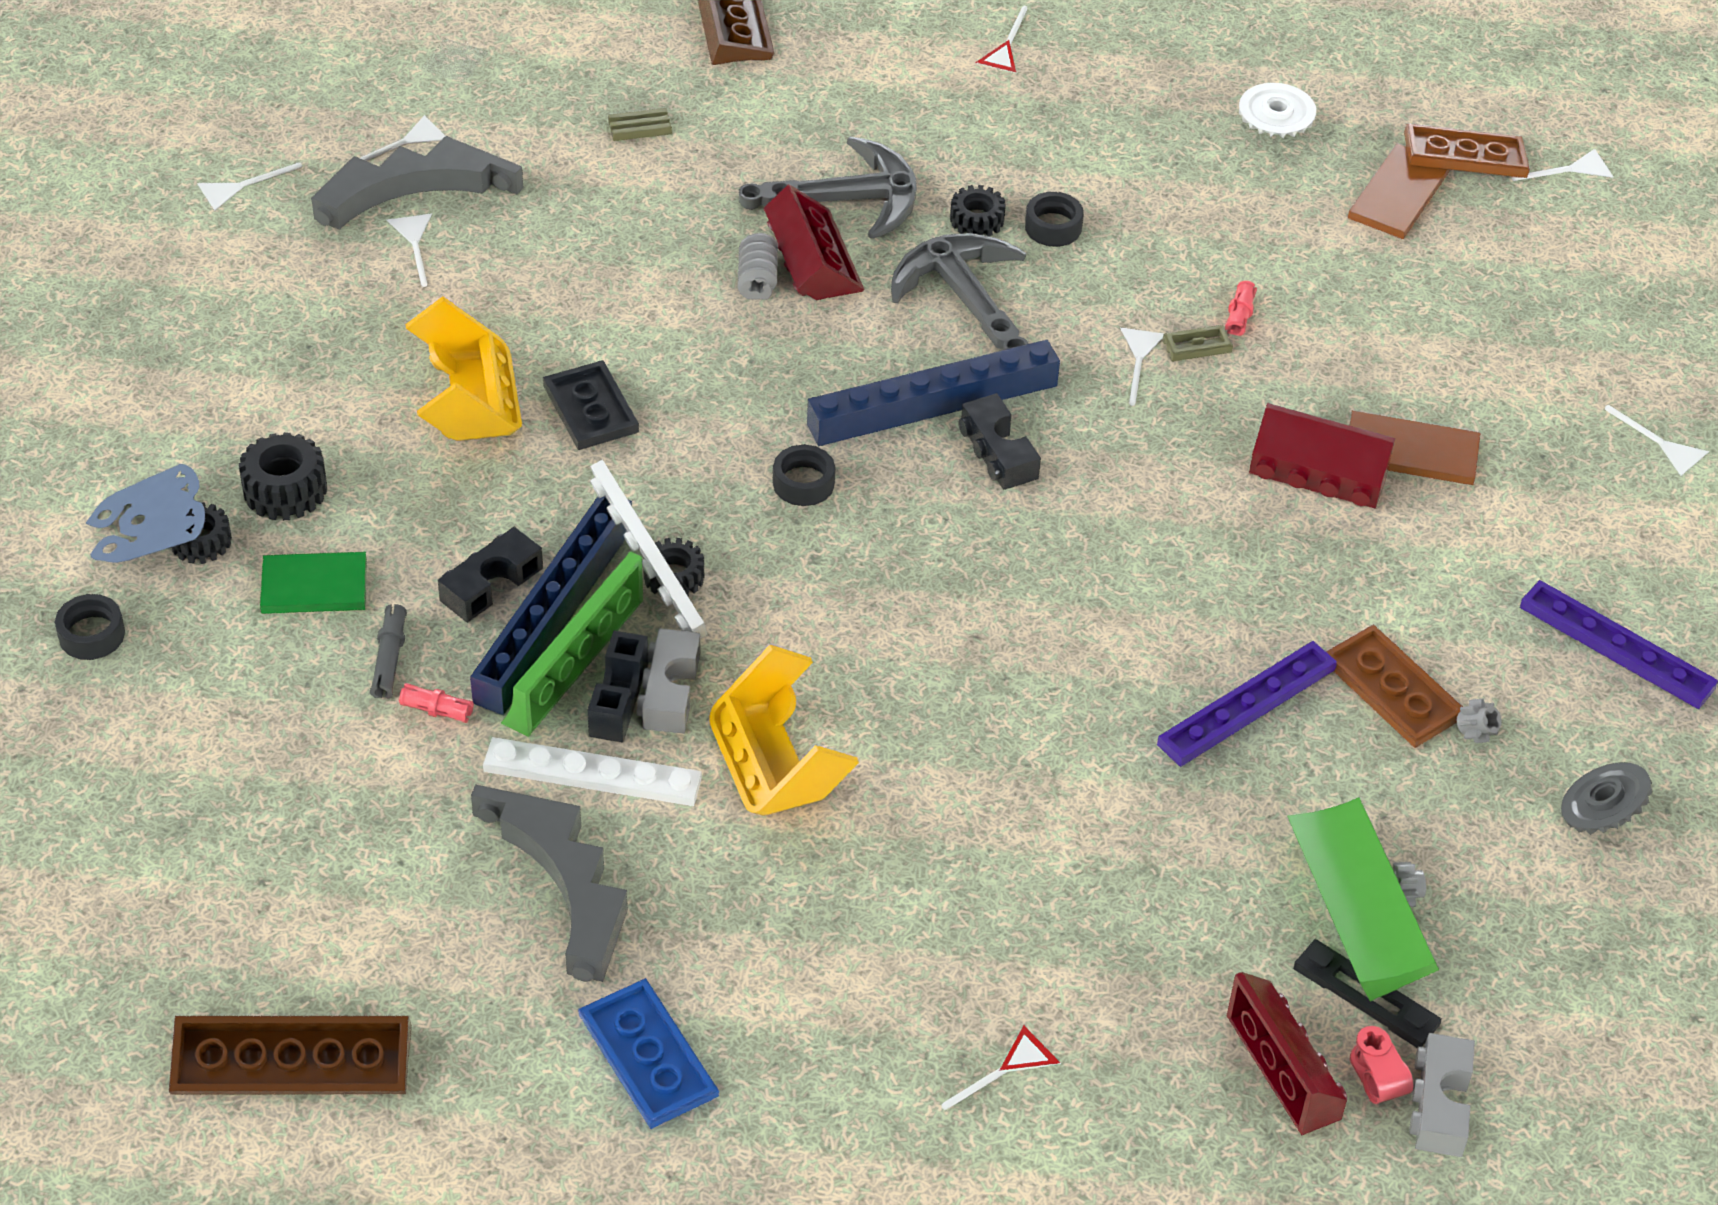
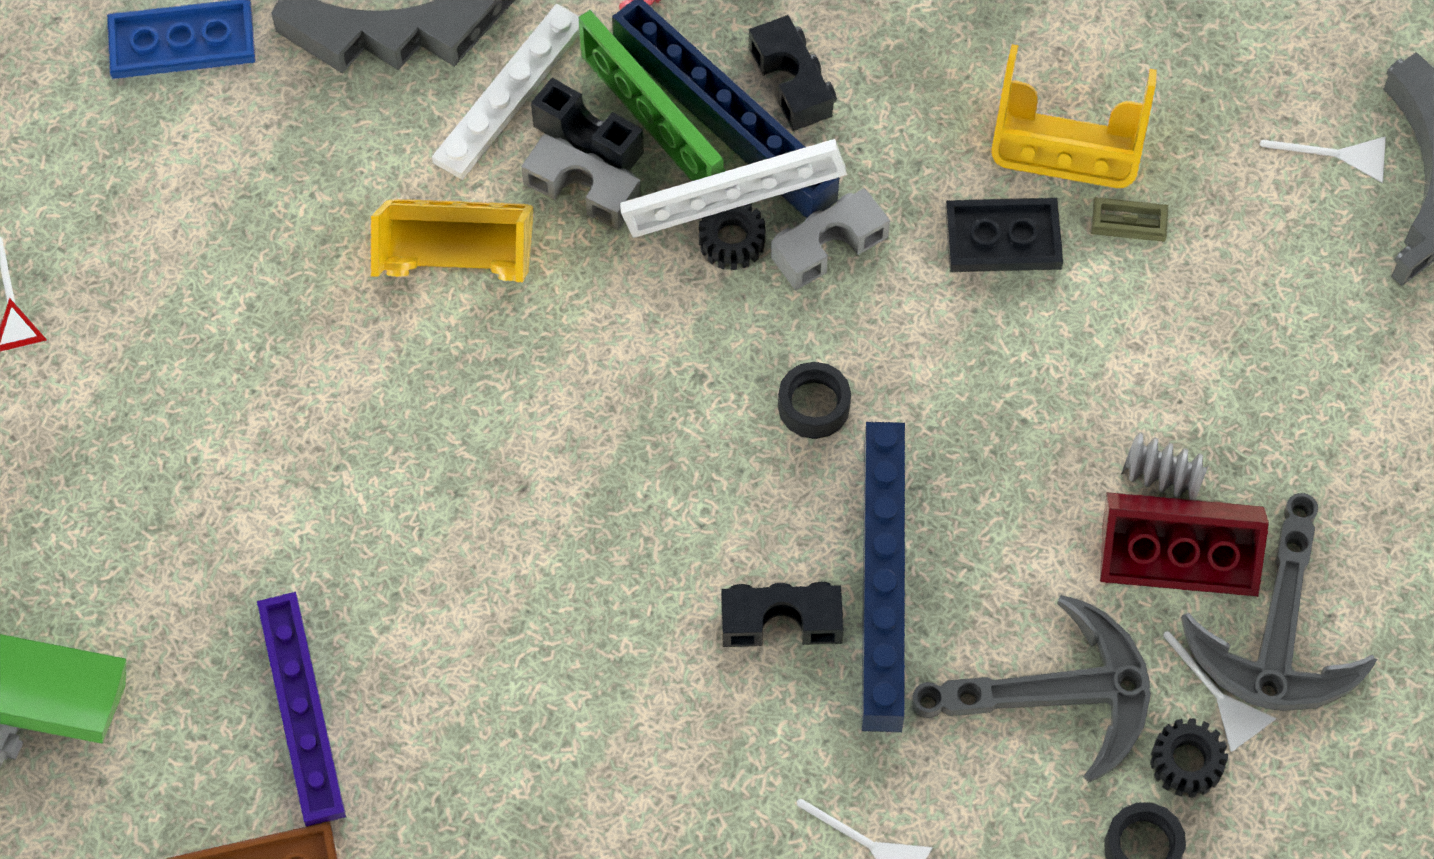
camera: 115 degrees right, 15 degrees up
(541, 358) = (1129, 225): none -> olive tile
(666, 517) = (852, 219): none -> light grey arch
(925, 202) = (1238, 719): none -> white piece

